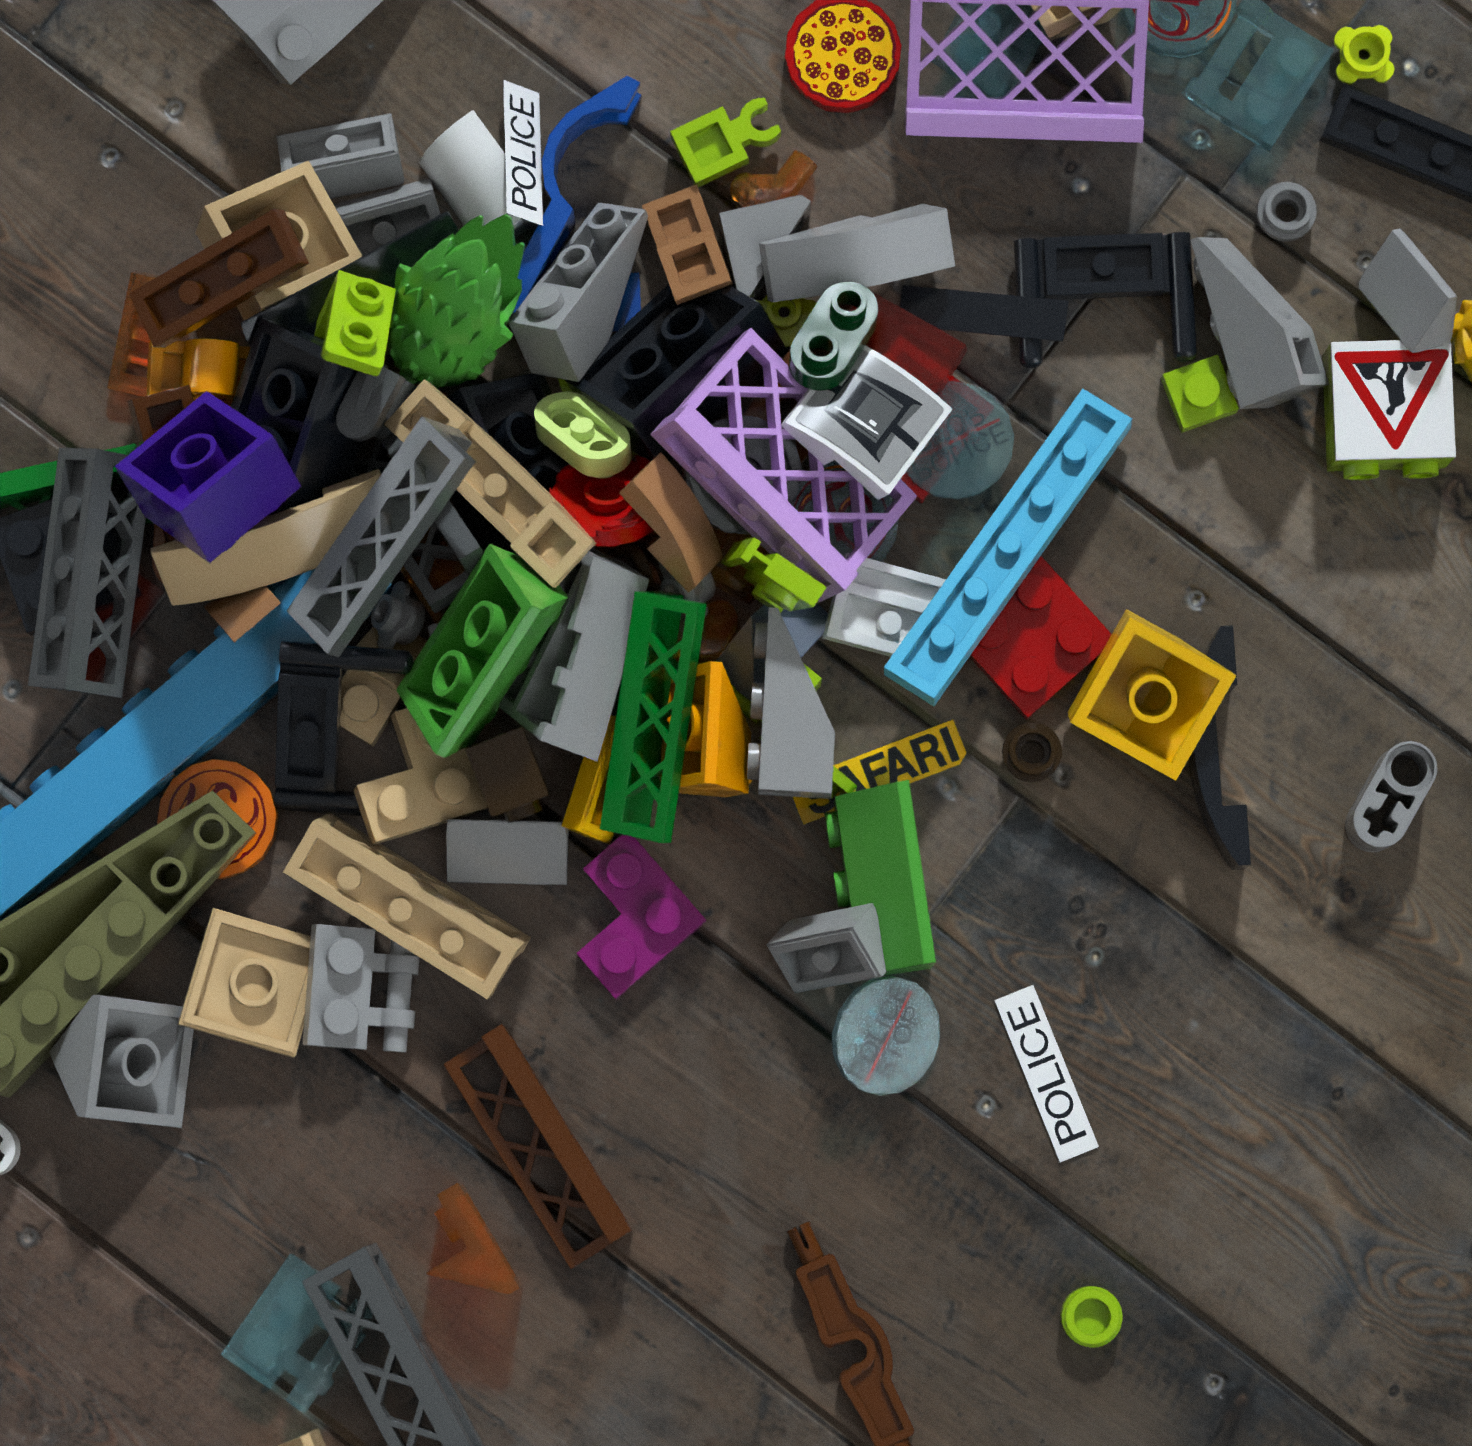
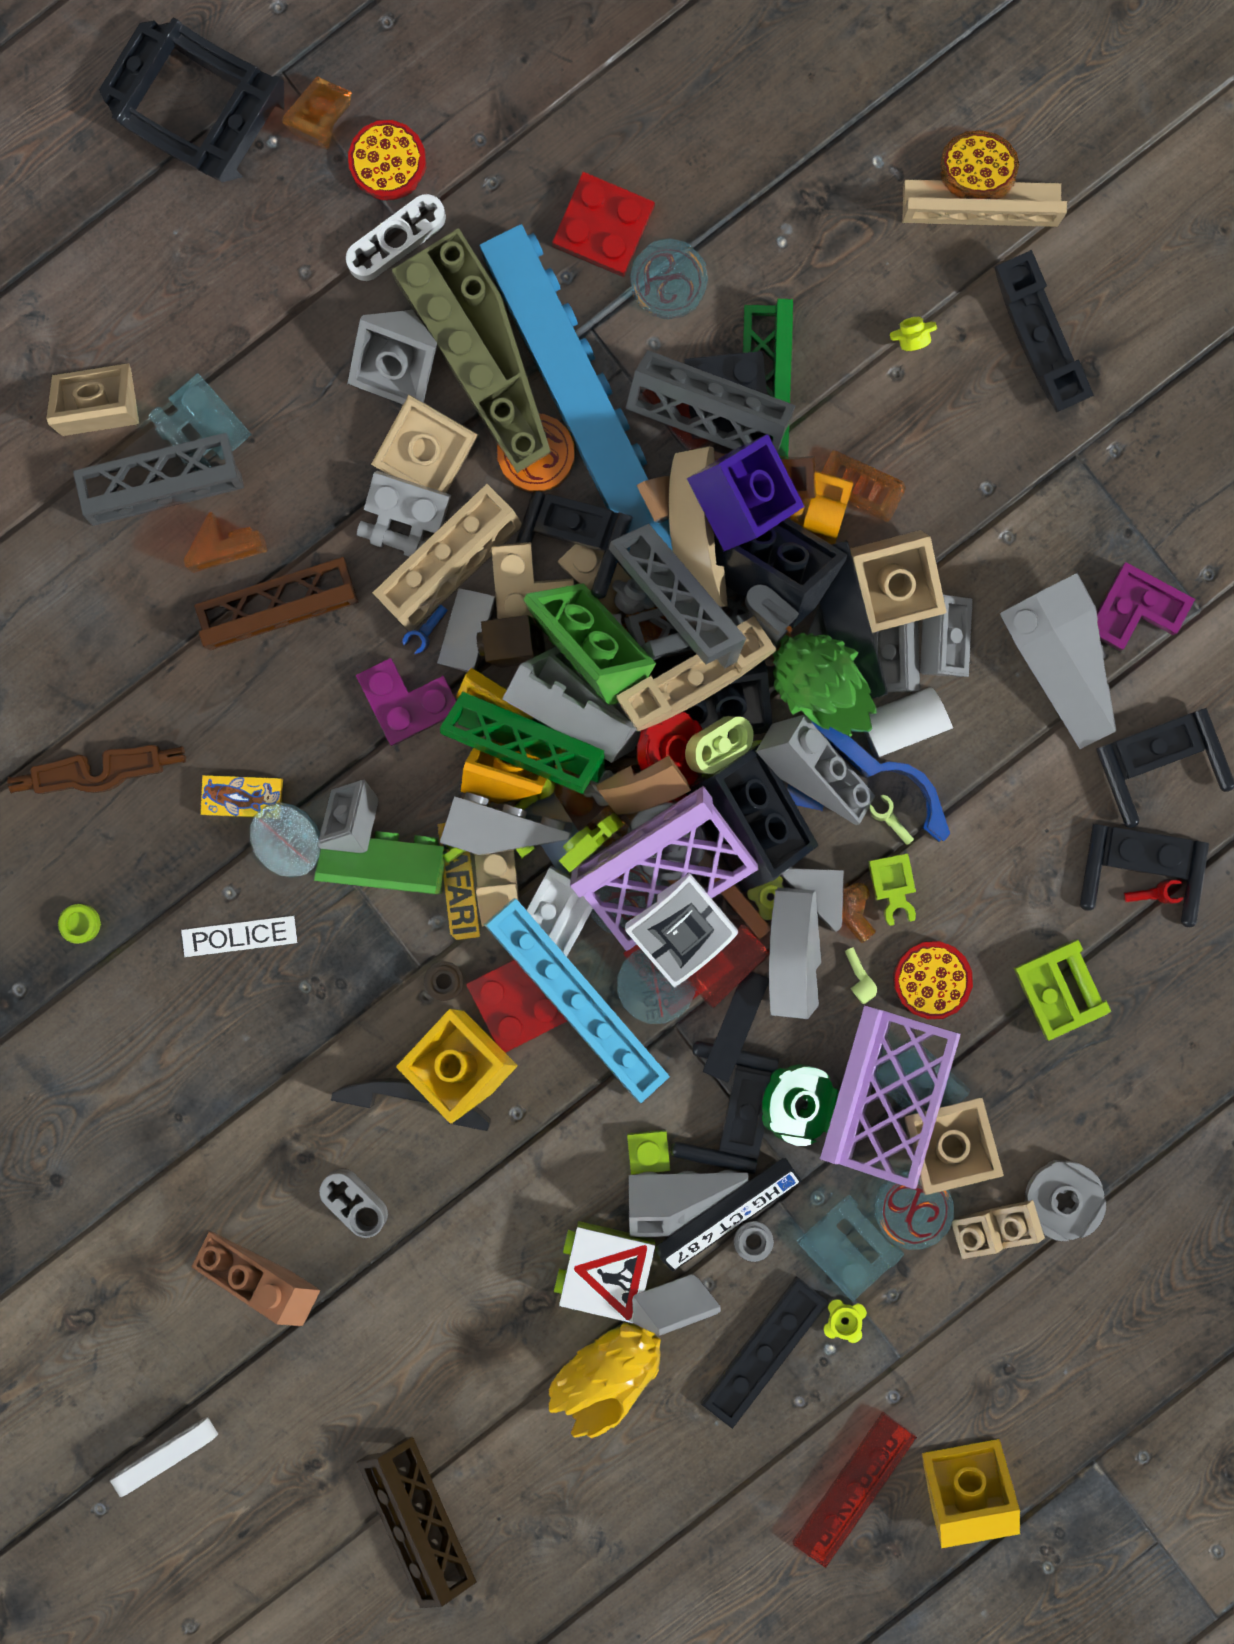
camera: 105 degrees right, 5 degrees up
(219, 278) = (878, 533): reddish brown plate -> none
(356, 323) = (822, 613): lime bracket -> none
(519, 913) = (426, 629): none -> blue hand
(522, 153) = (916, 753): white sticker -> none
(627, 169) = (890, 818): none -> yellowish green hand
(687, 244) = (829, 845): medium nougat slope -> none
(837, 332) = (741, 924): plate -> none
(838, 1125) = (238, 795): none -> tile
(873, 712) = (495, 882): none -> tan slope
(879, 143) = (865, 988): none -> yellowish green hand
(1069, 219) = (780, 1100): none -> plate
(1257, 254) = (728, 1214): none -> tile

